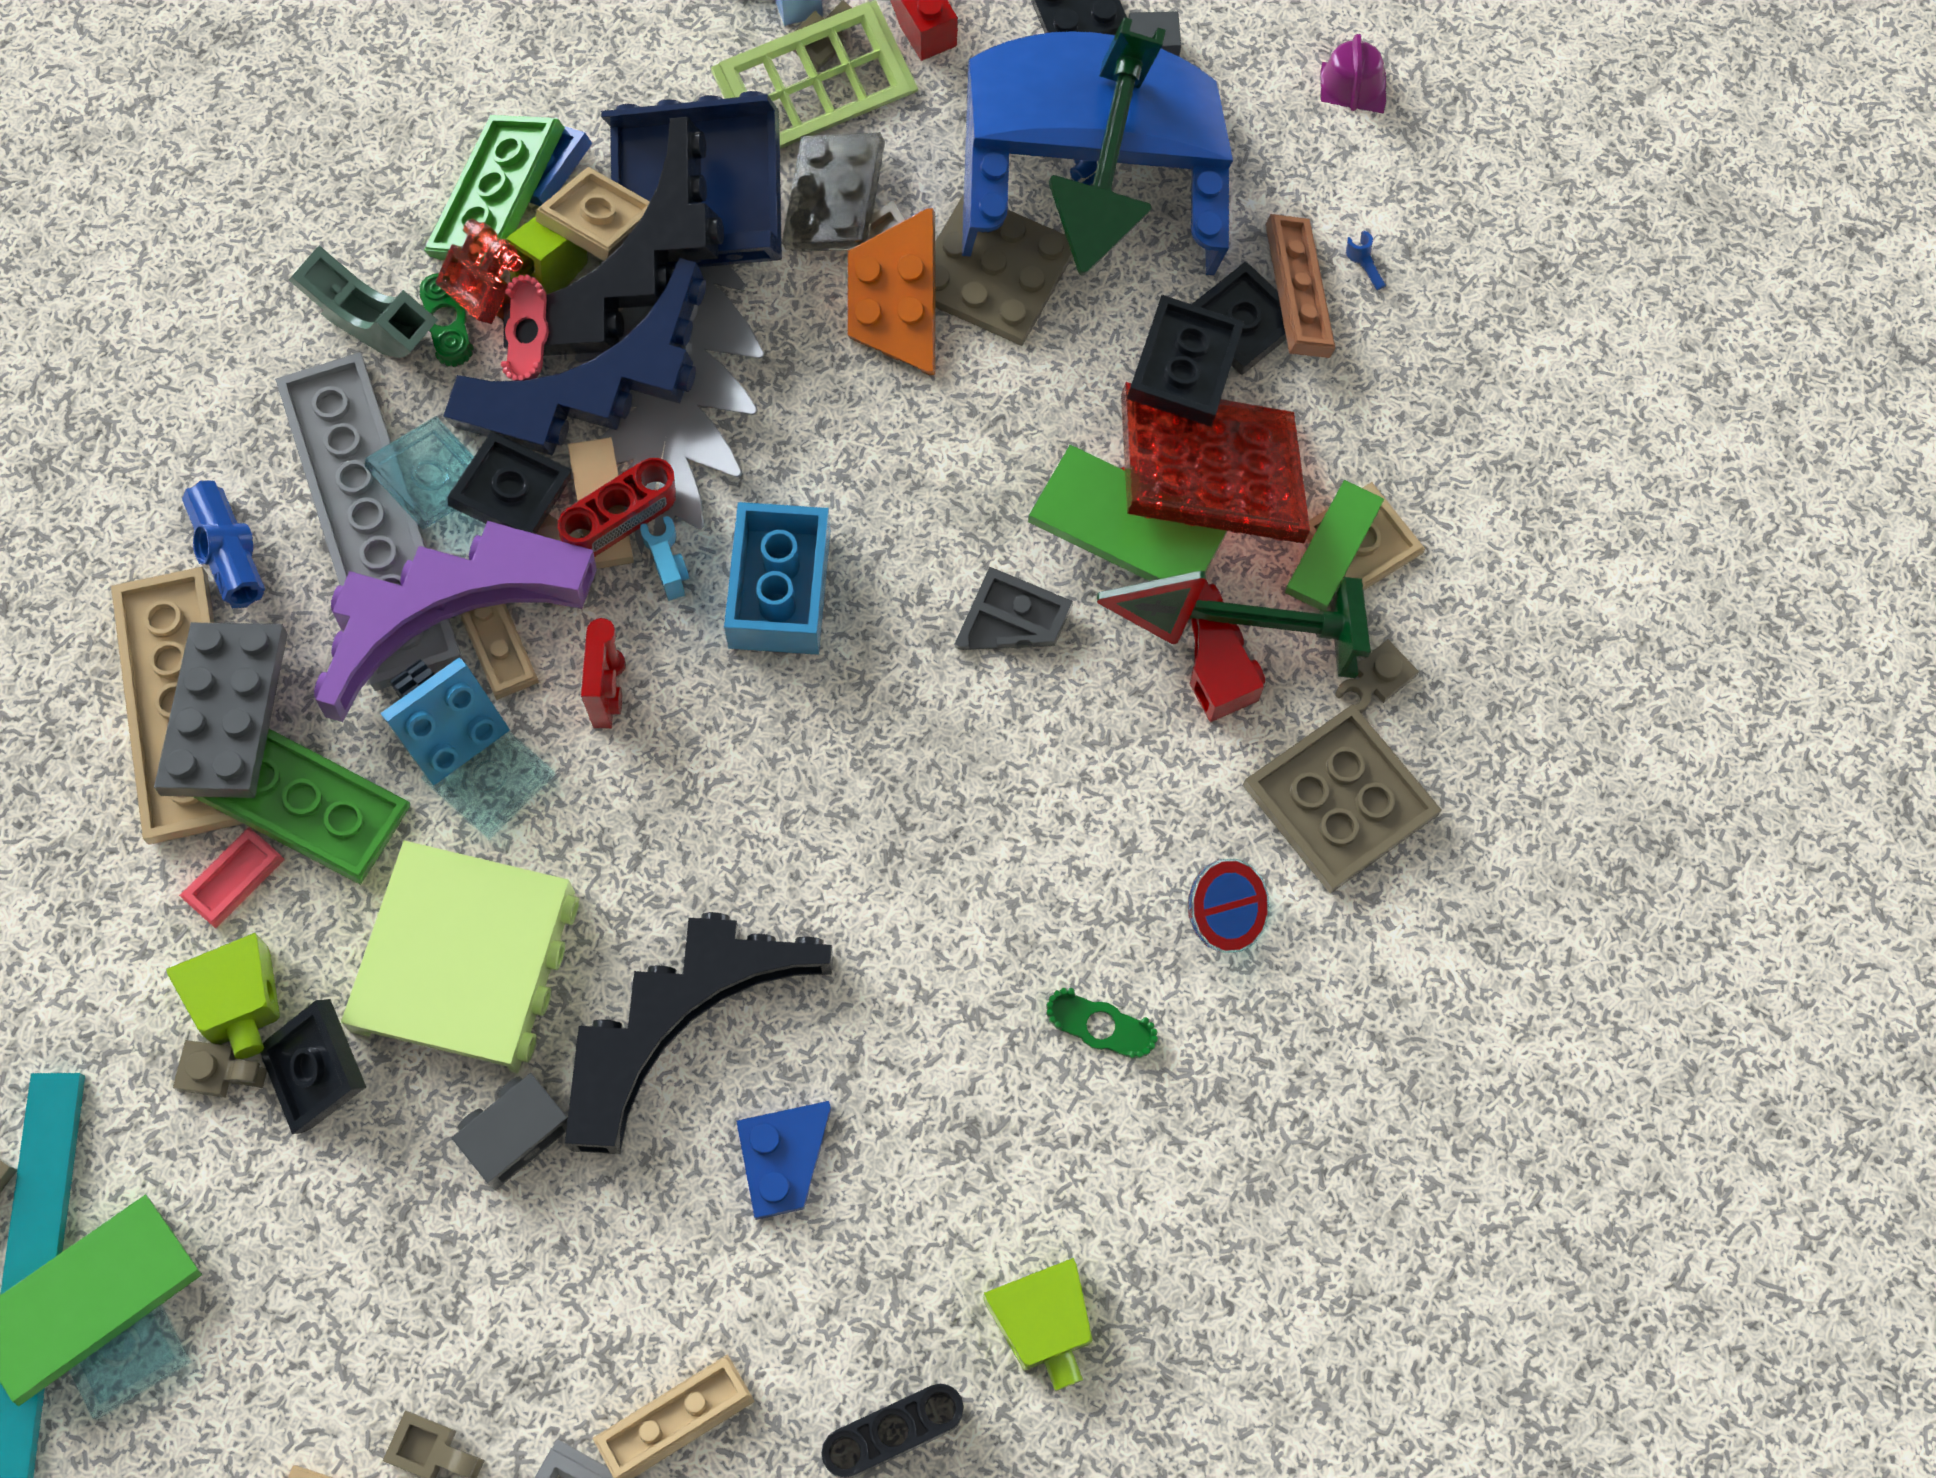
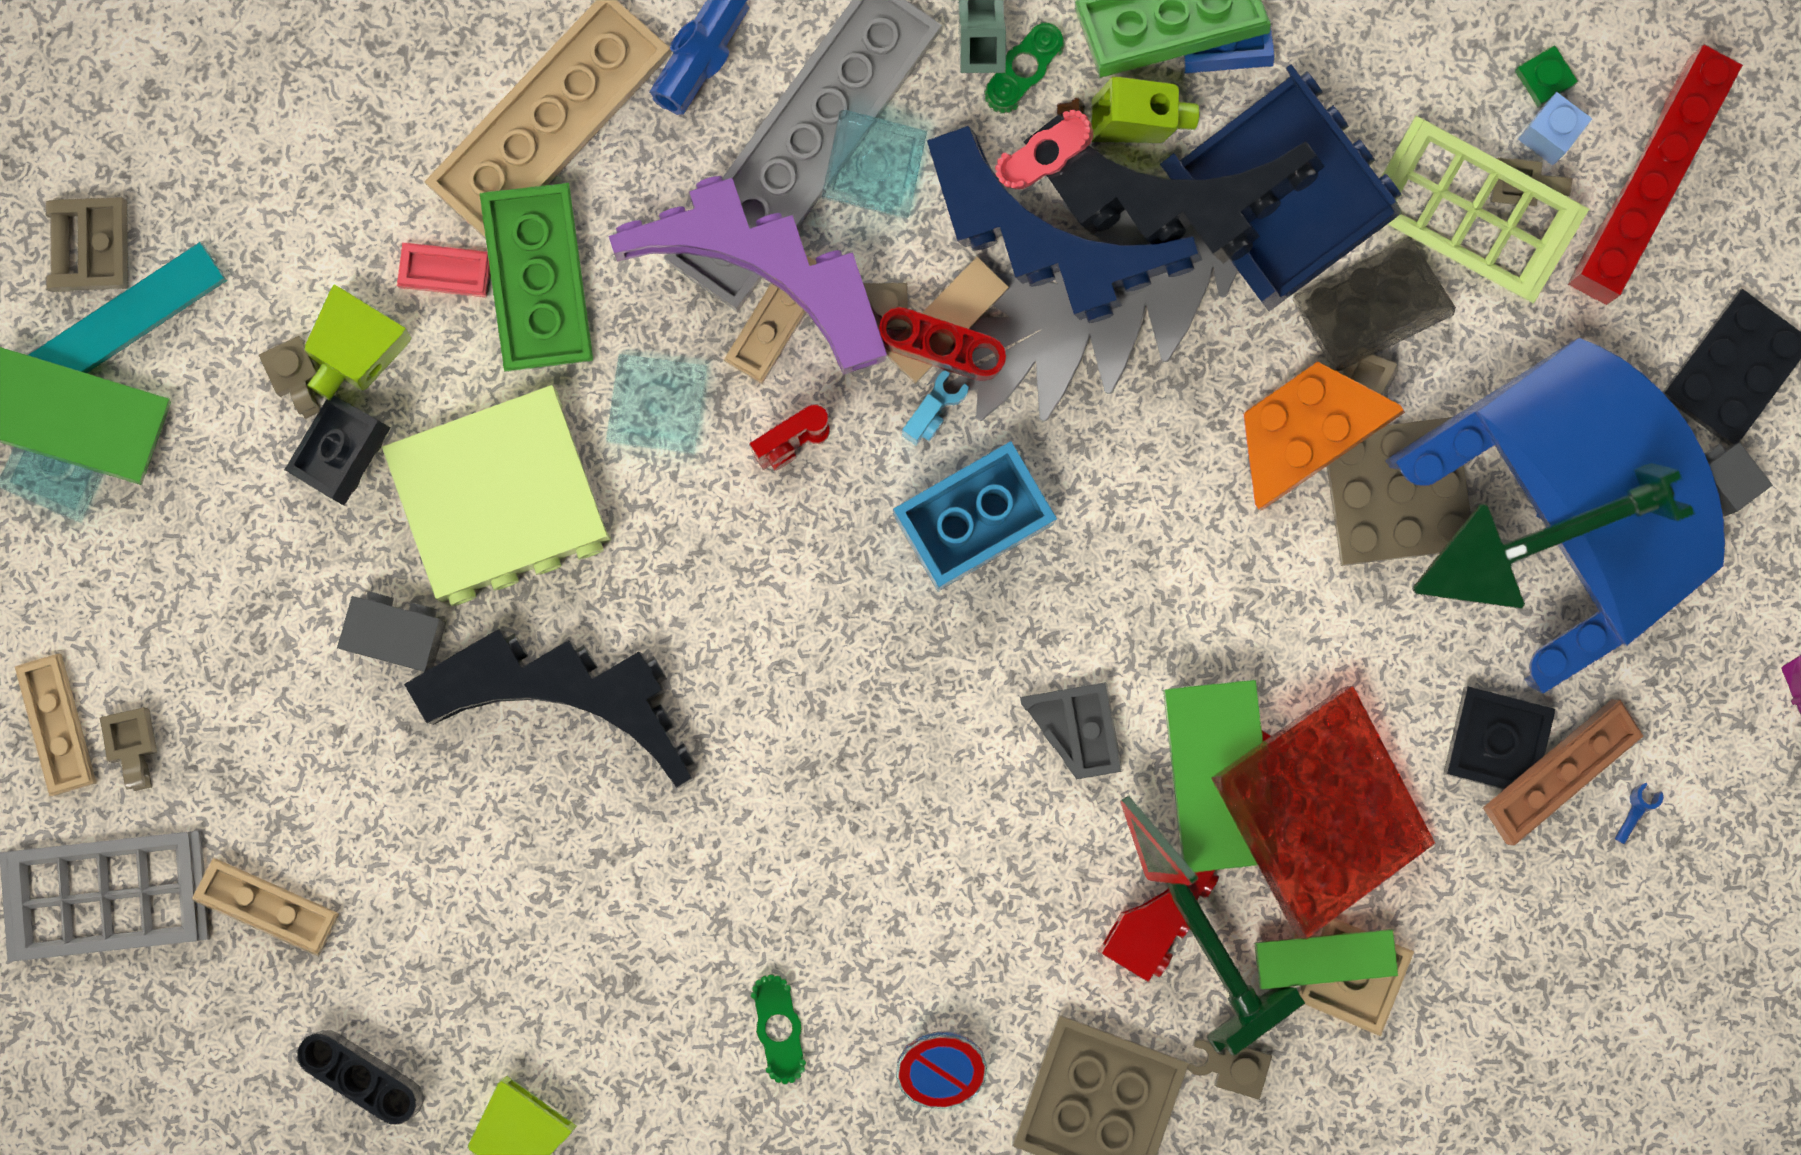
camera: 55 degrees right, 15 degrees up
(221, 710) = (559, 163): dark grey plate -> none
(442, 717) = (668, 338): dark azure plate -> none
(478, 283) = (1062, 75): clear red plate -> none
(509, 485) = (903, 240): black plate -> none
(593, 213) = (1195, 130): tan tile -> none
(781, 1156) = (510, 850): blue wing -> none
(1186, 360) = (1407, 725): black plate -> none

